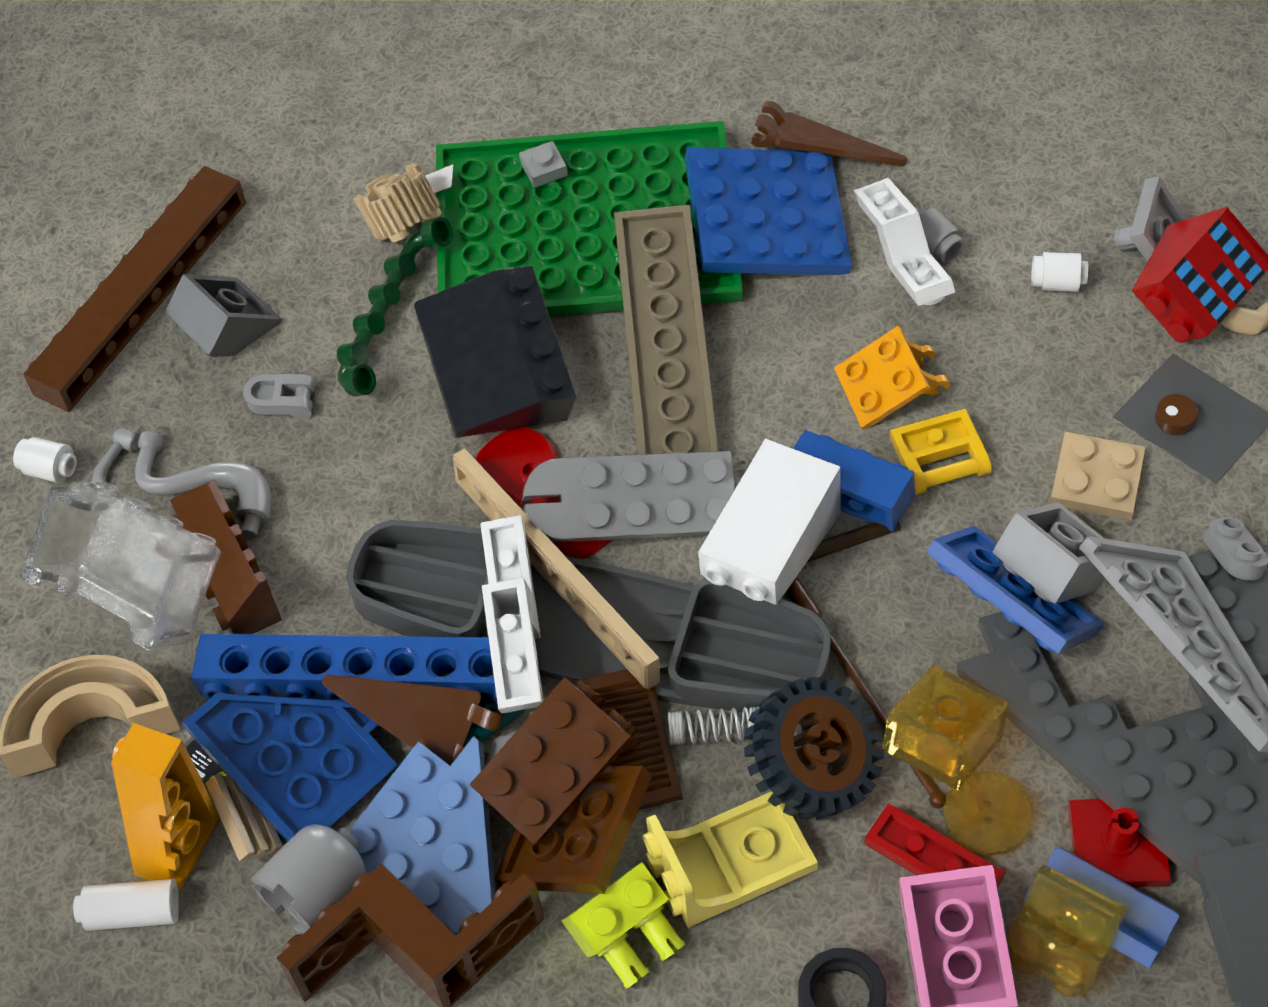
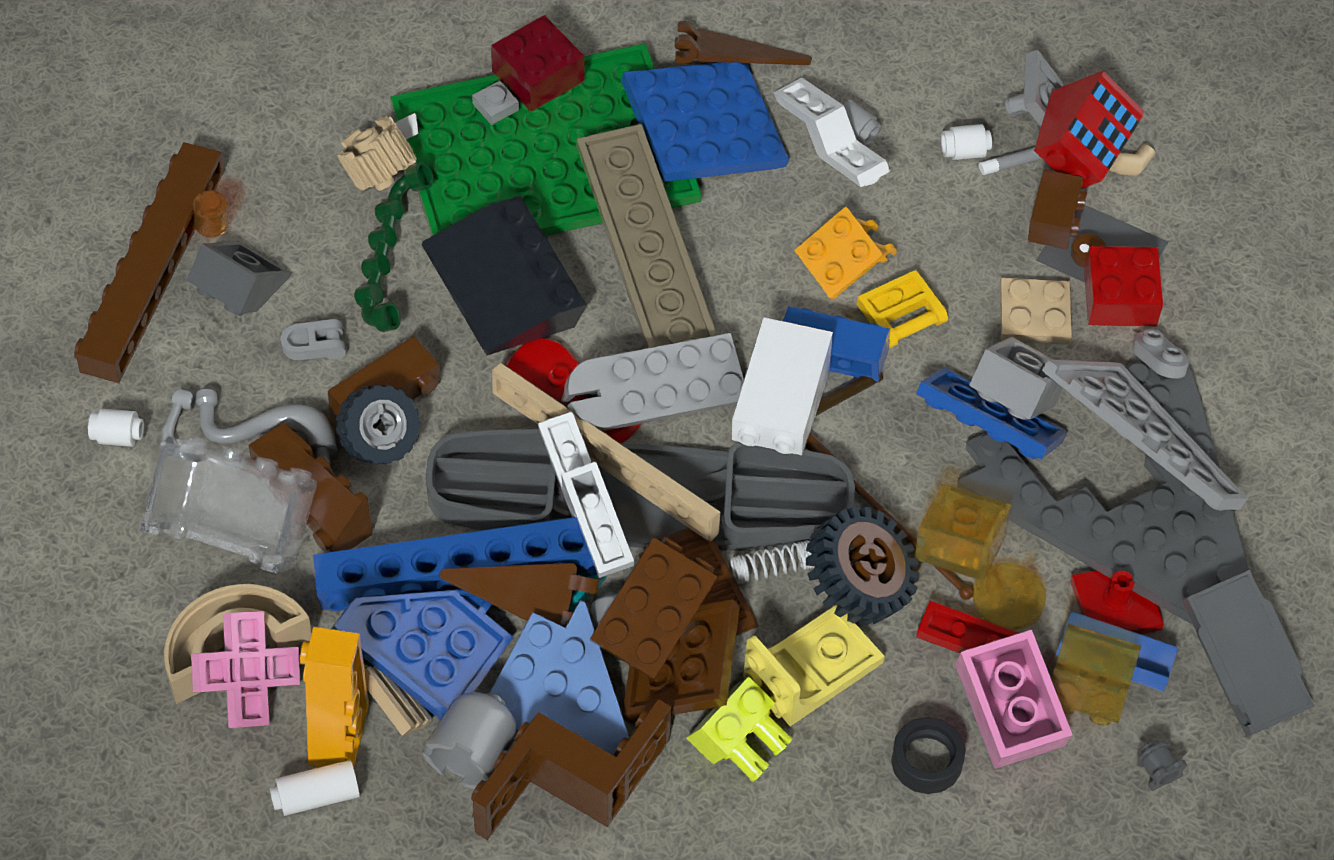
camera: 20 degrees left, 0 degrees up
(78, 754) = (245, 669): none -> bright pink plate
(211, 244) = (210, 214): none -> clear orange brick
(297, 480) = (366, 408): none -> black wheel
(338, 456) = (404, 368): none -> reddish brown brick
(597, 126) = (537, 63): none -> dark red brick
(1103, 300) = (1008, 161): none -> light grey bar
(1147, 361) = (1056, 209): none -> reddish brown brick
(1207, 461) = (1123, 286): none -> red brick

